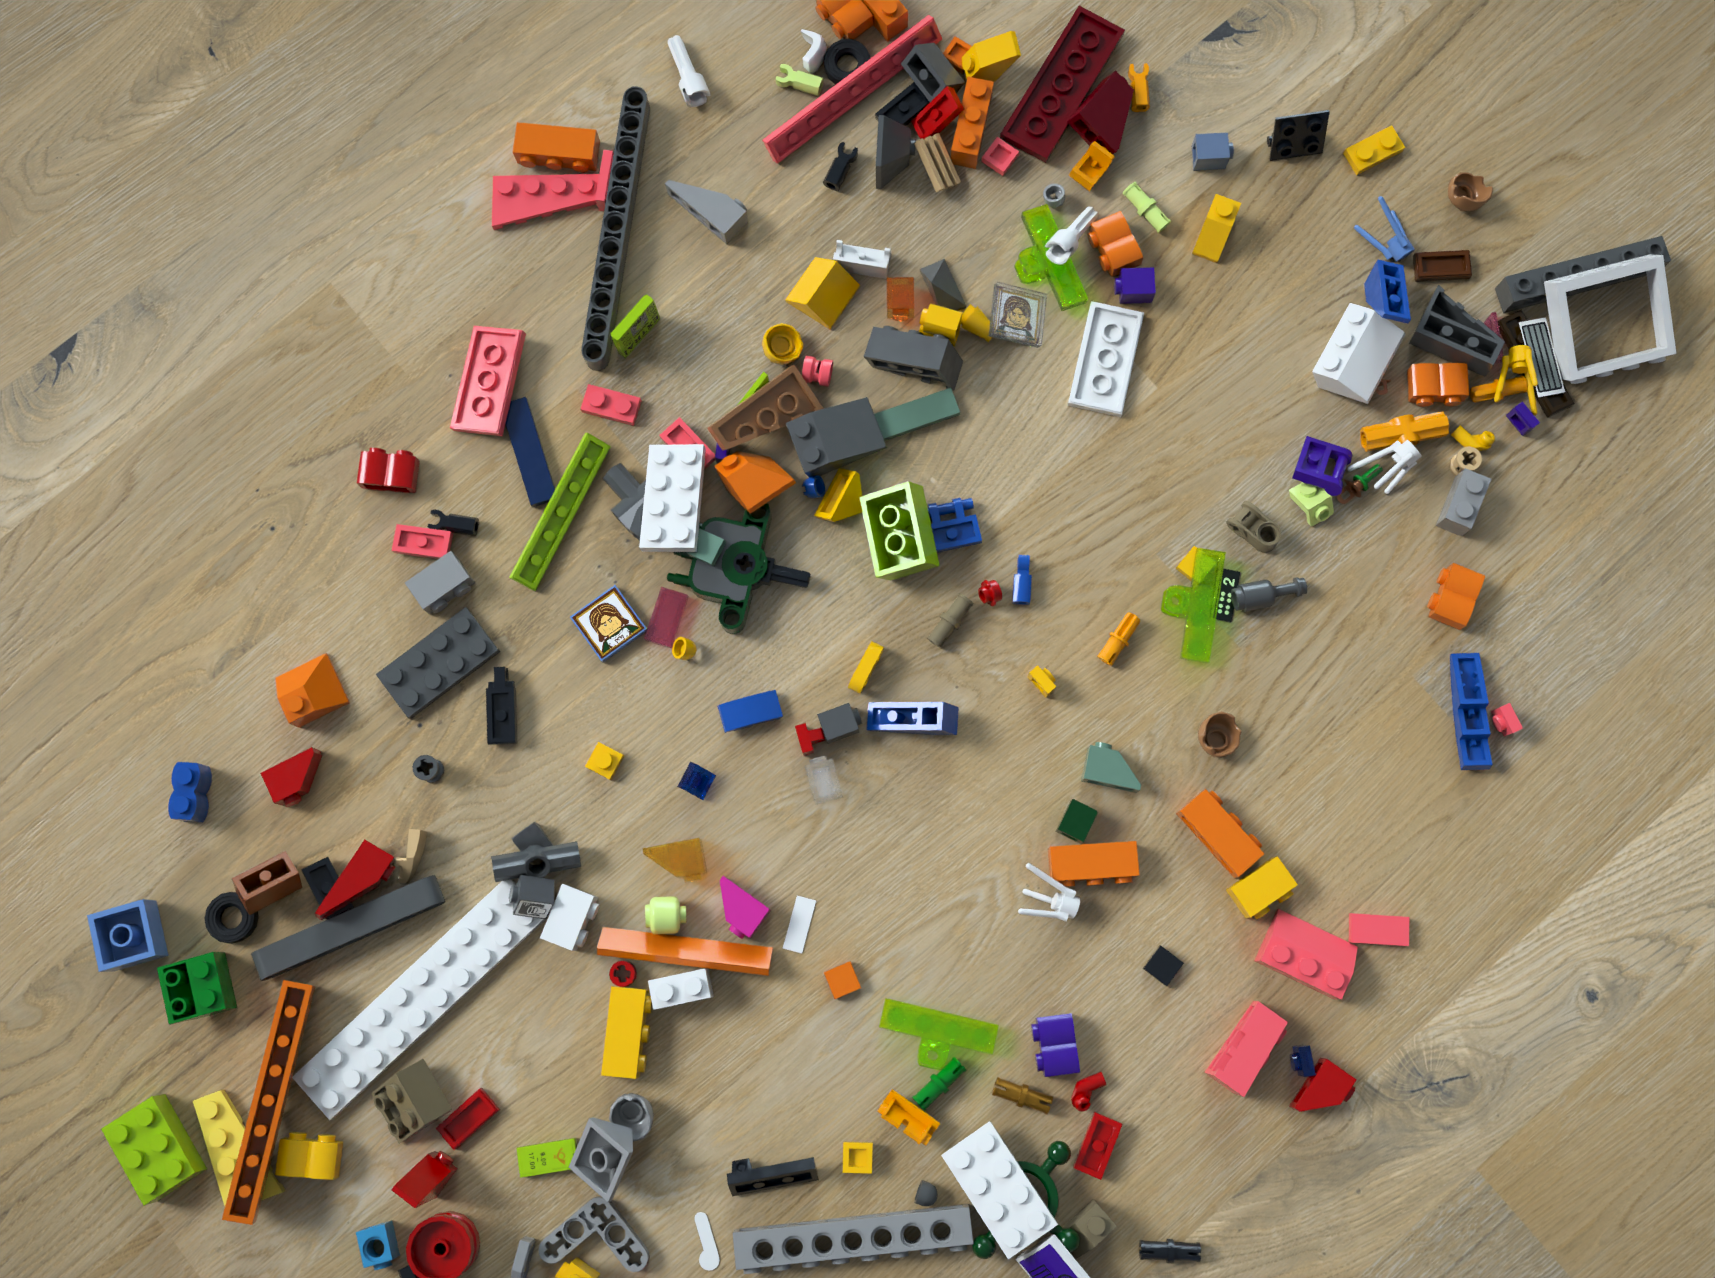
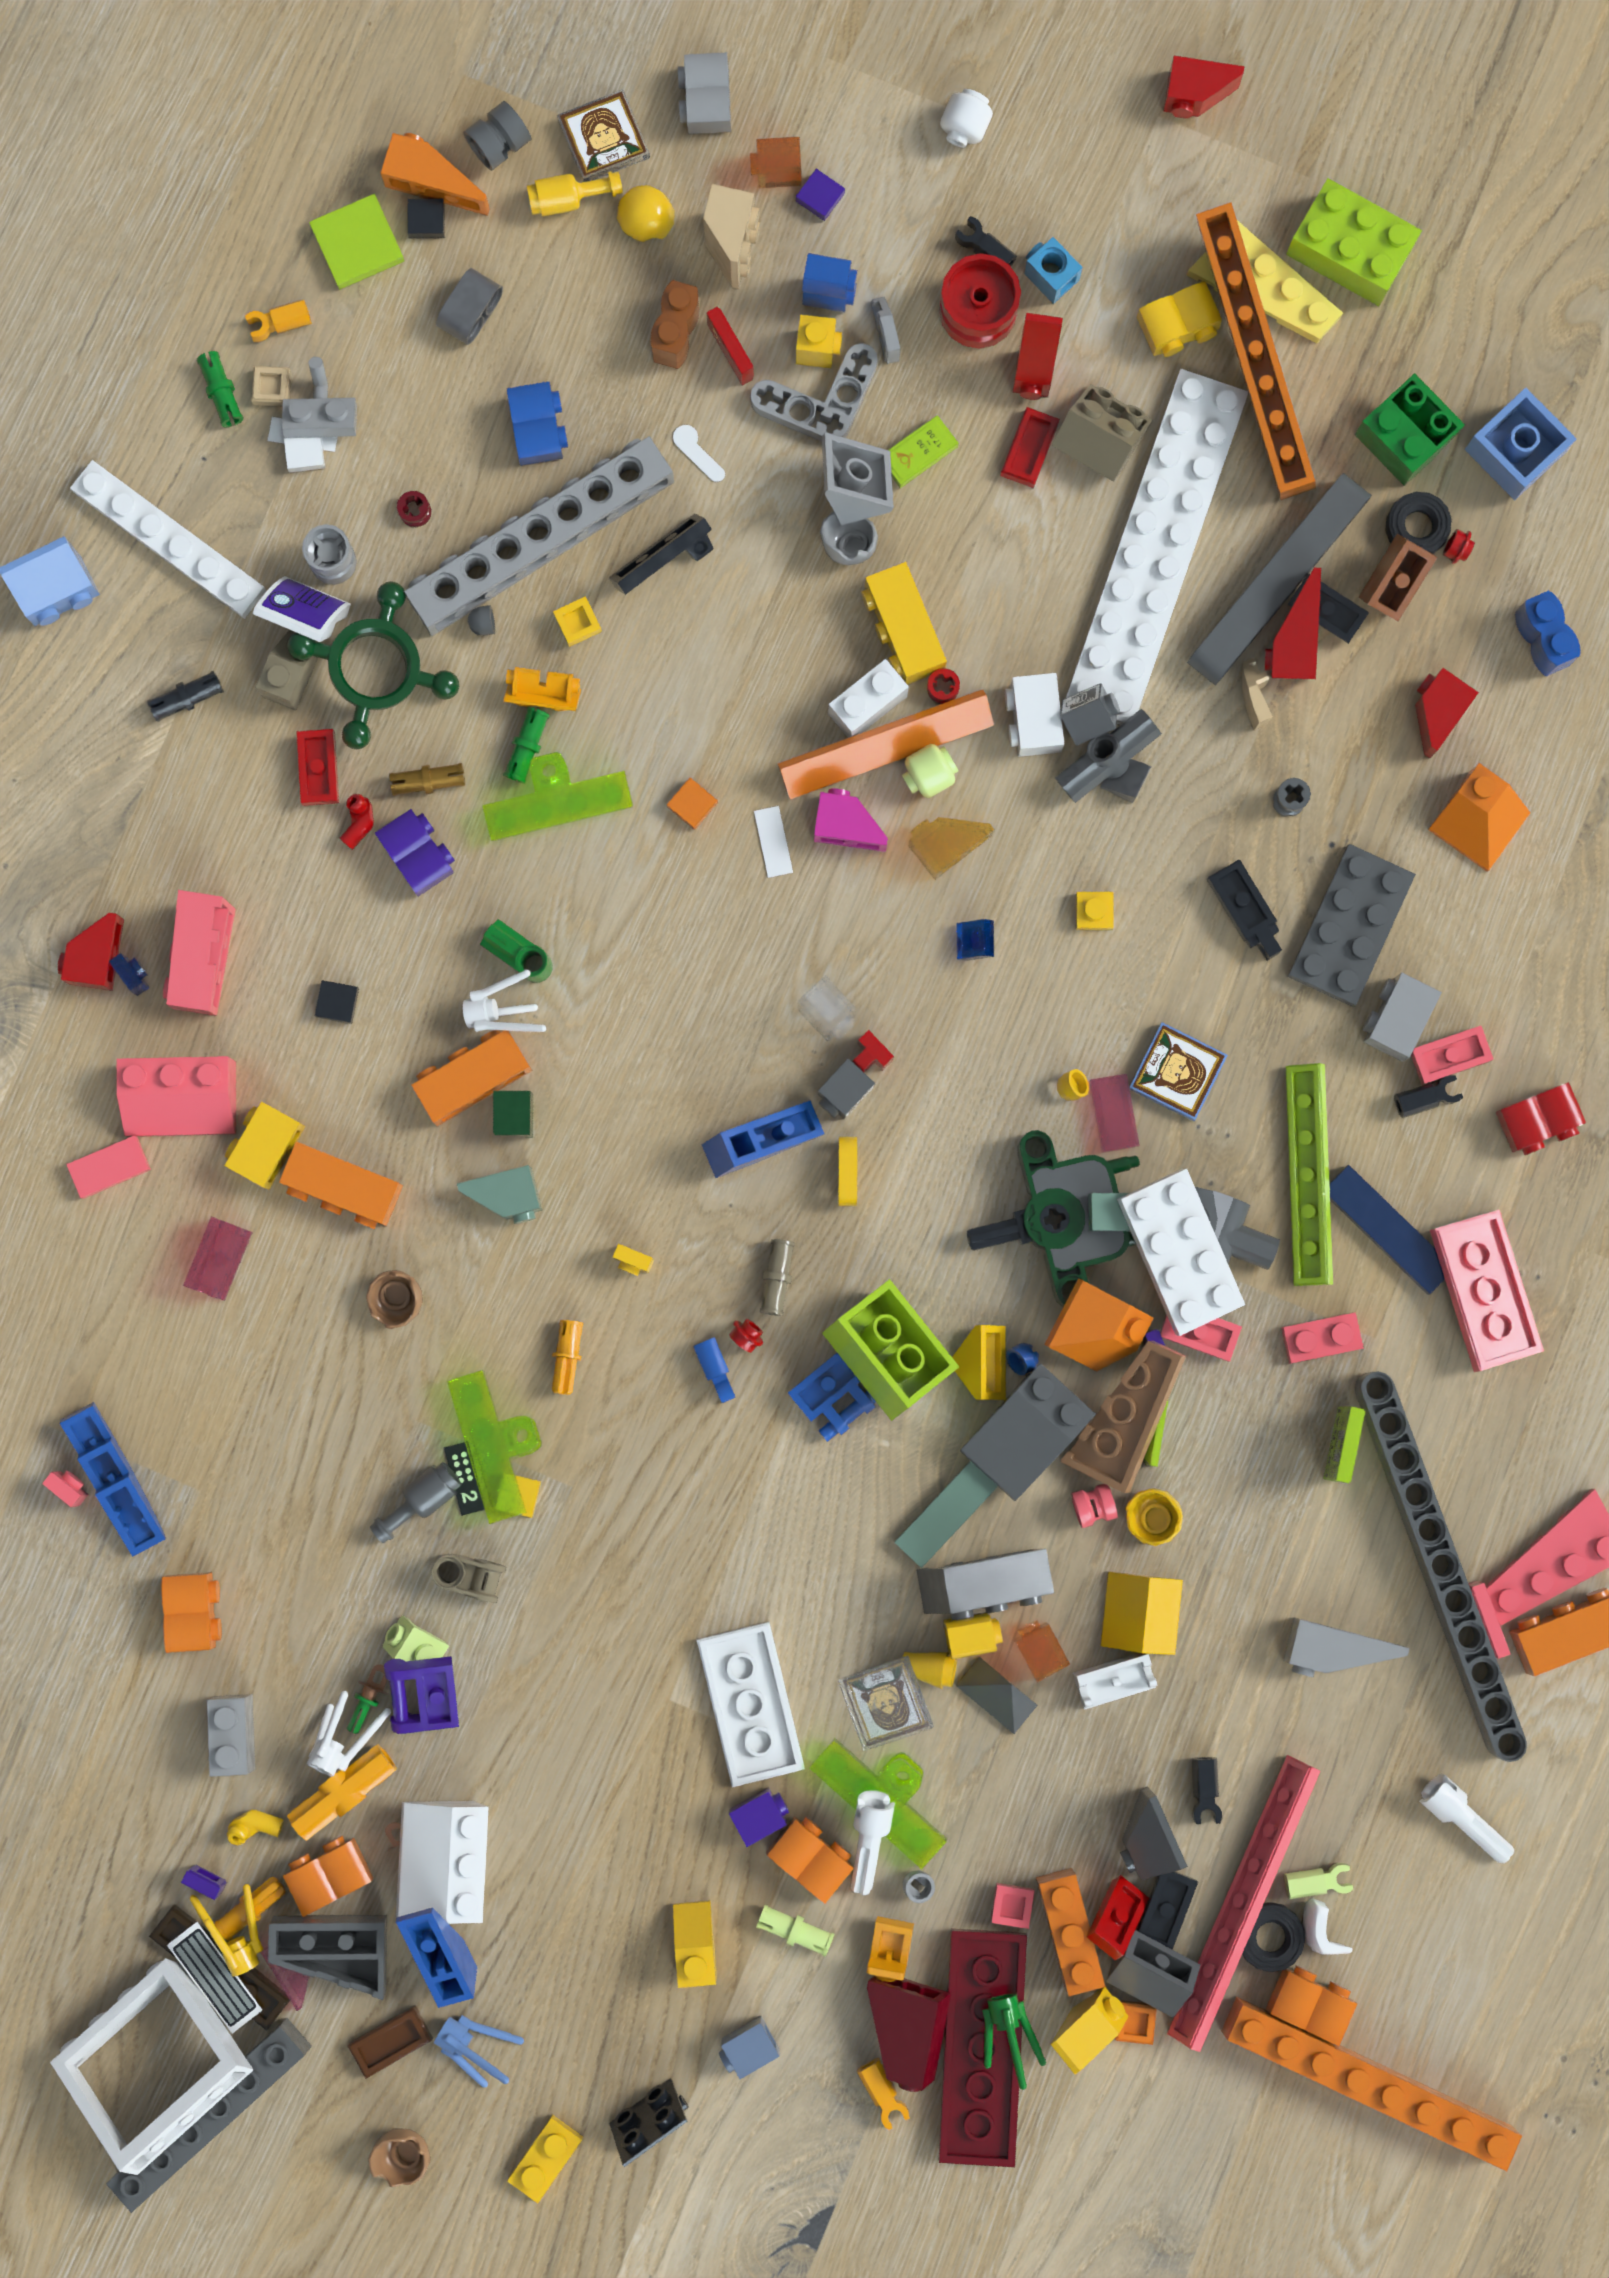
camera: 145 degrees right, 5 degrees up
(213, 886) = (1459, 546): none -> red plate
(750, 711) = (956, 1052): blue slope -> none
(940, 162) = (1082, 1859): tan tile -> none
(999, 1190) = (402, 661): white plate -> none
(1019, 938) = (515, 950): none -> green piece
(1038, 92) = (1005, 2012): none -> green plant
(1330, 825) = (217, 1258): none -> clear pink hinge
(1464, 453) = (239, 1793): tan bush -> none

